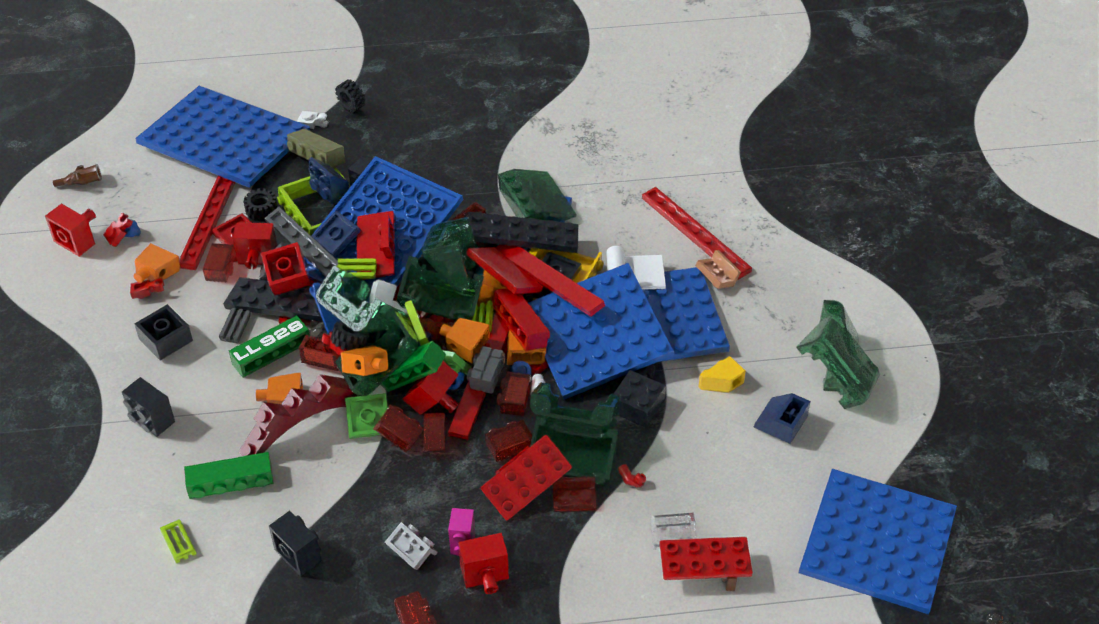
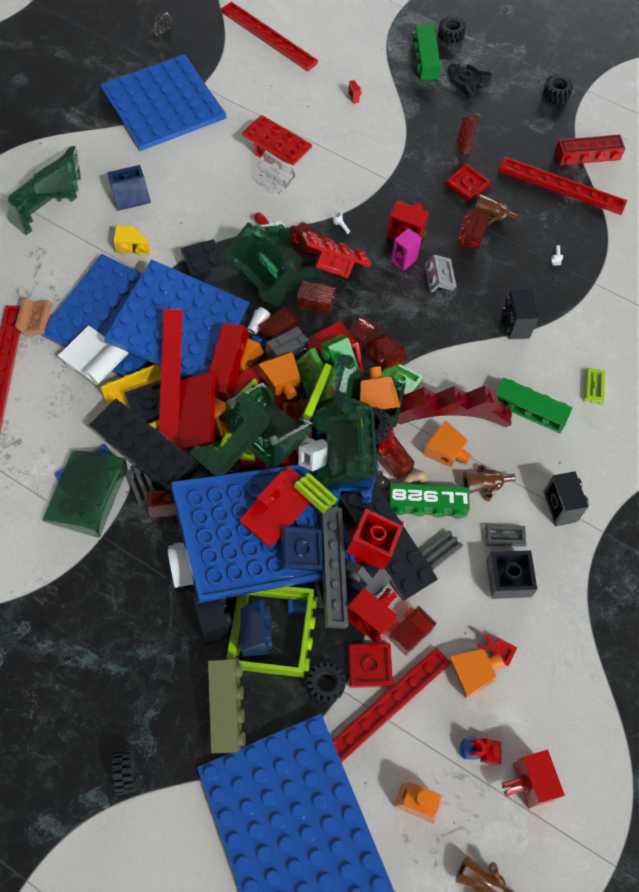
camera: 145 degrees left, 15 degrees up
(148, 181) = (418, 801): none -> orange torso
(188, 368) = (491, 538): none -> dark grey tile
(230, 389) = (486, 479): none -> reddish brown piece
(293, 359) = (415, 476): none -> tan arm
(313, 119) = (187, 783): white plate -> none
(562, 536) = (339, 221): none -> white hand

